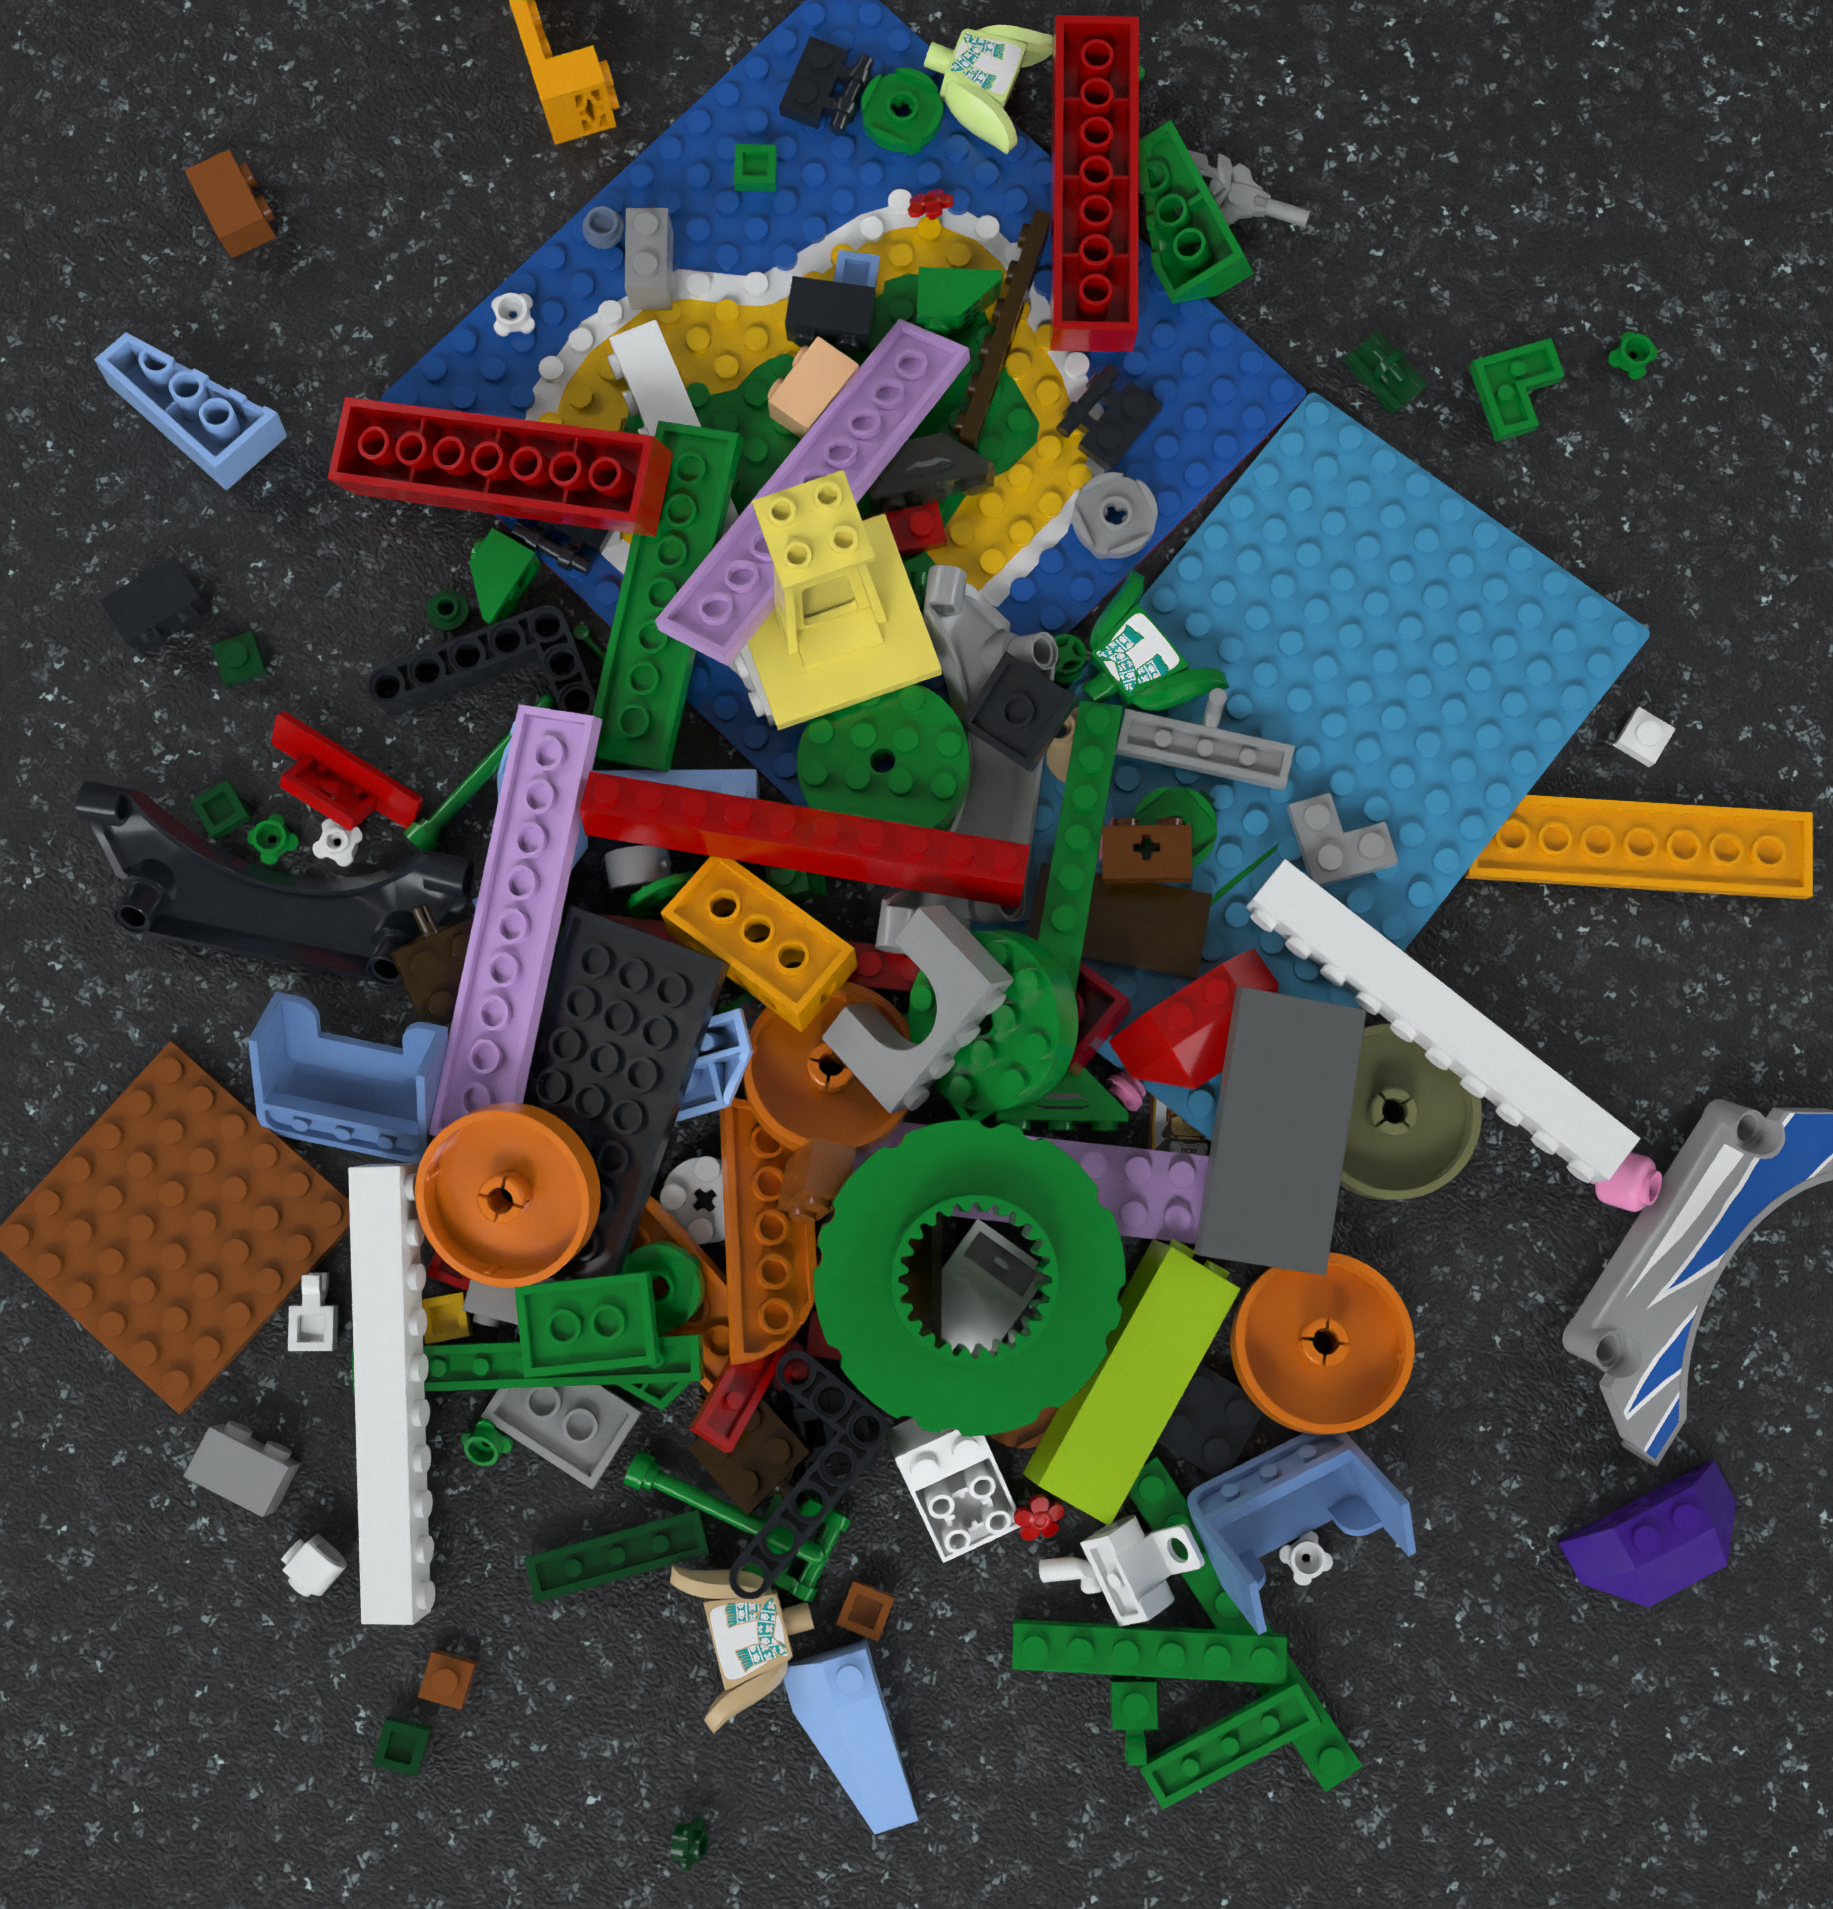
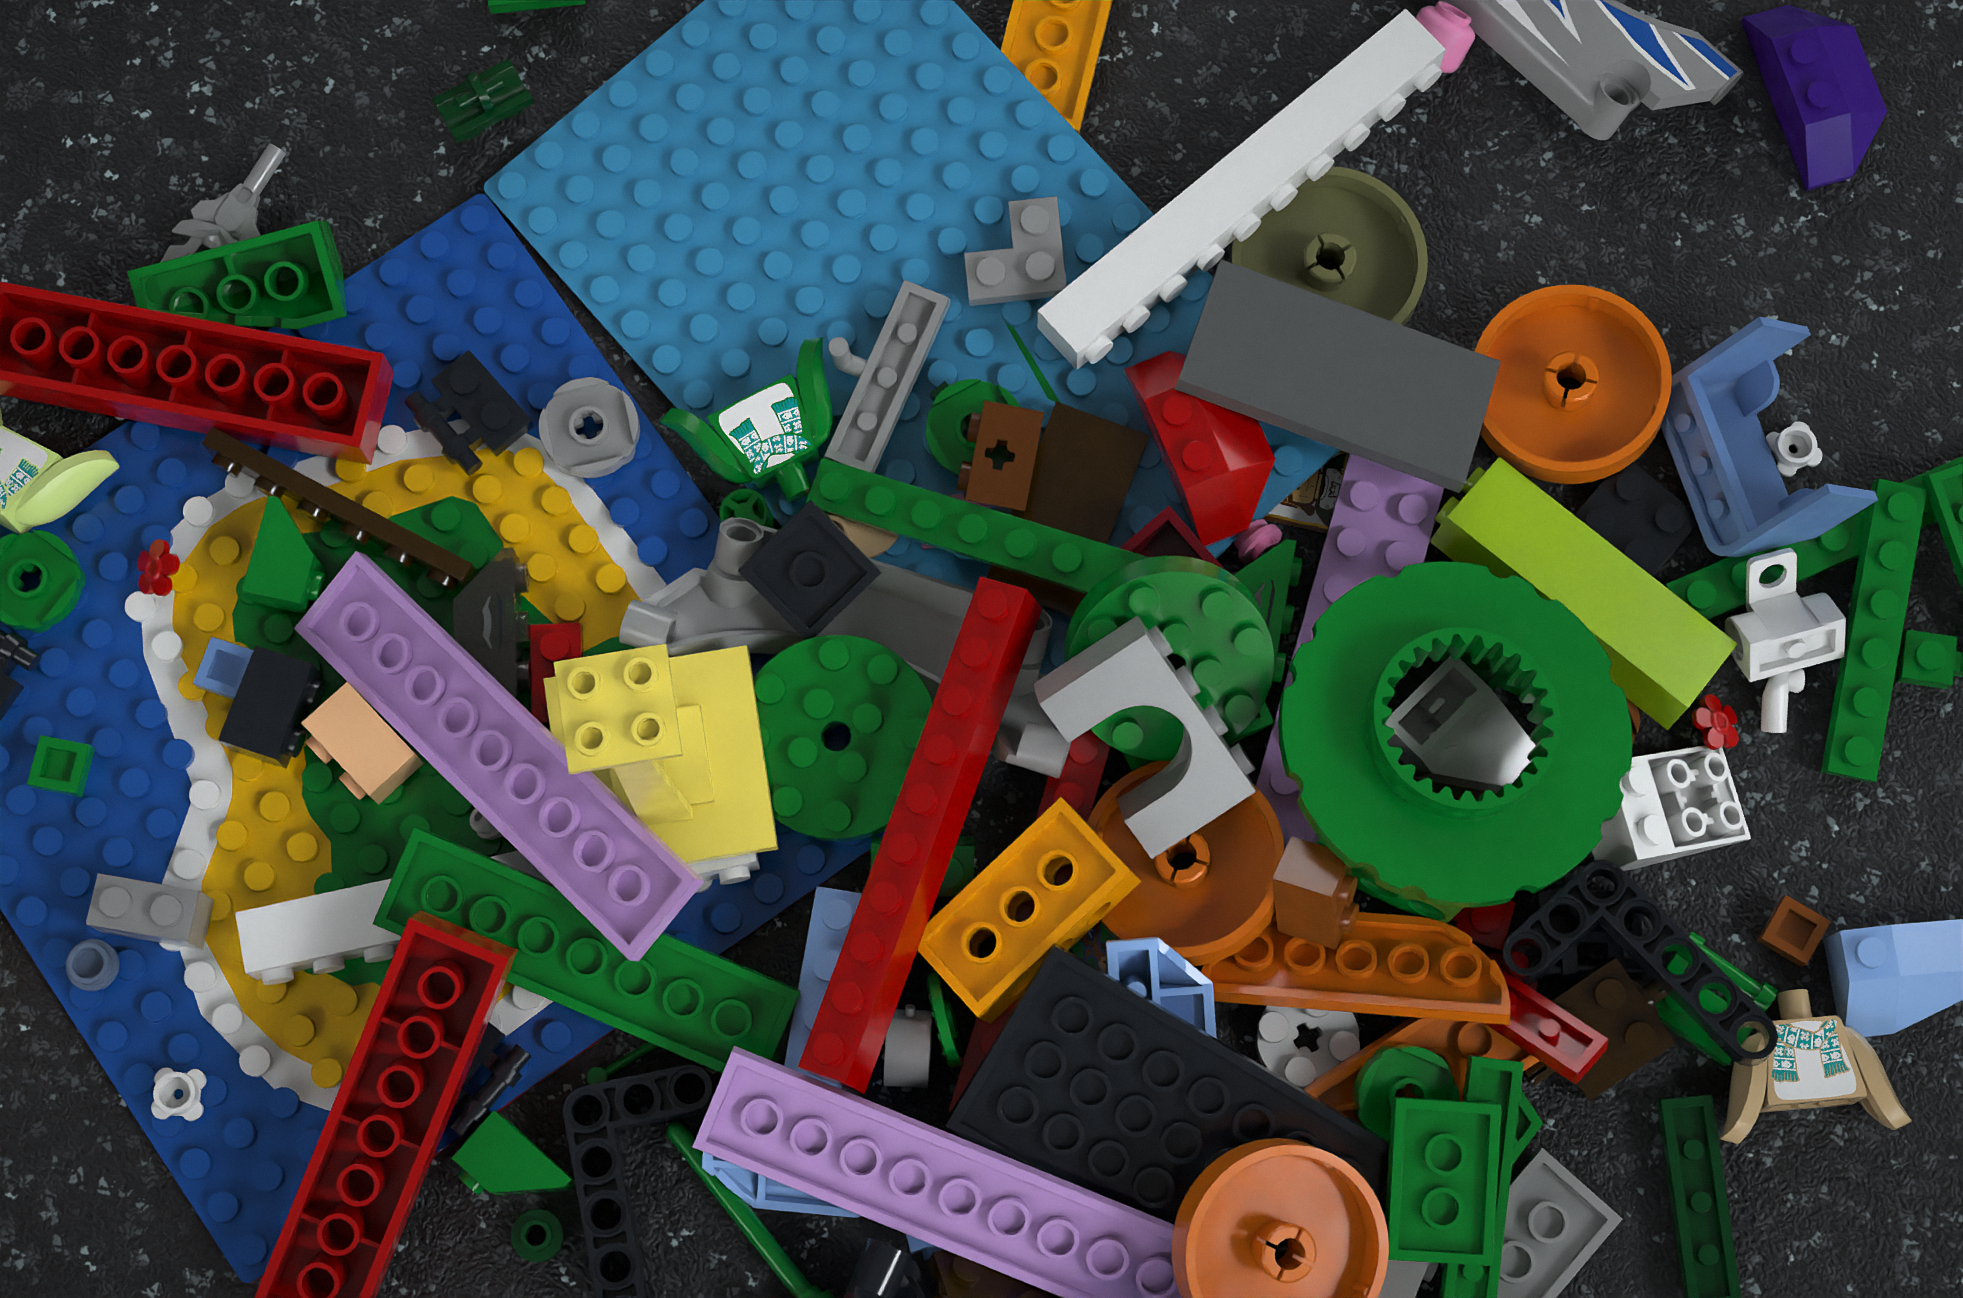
camera: 80 degrees left, 5 degrees down
(647, 1474) = (1613, 1152): green piece -> none

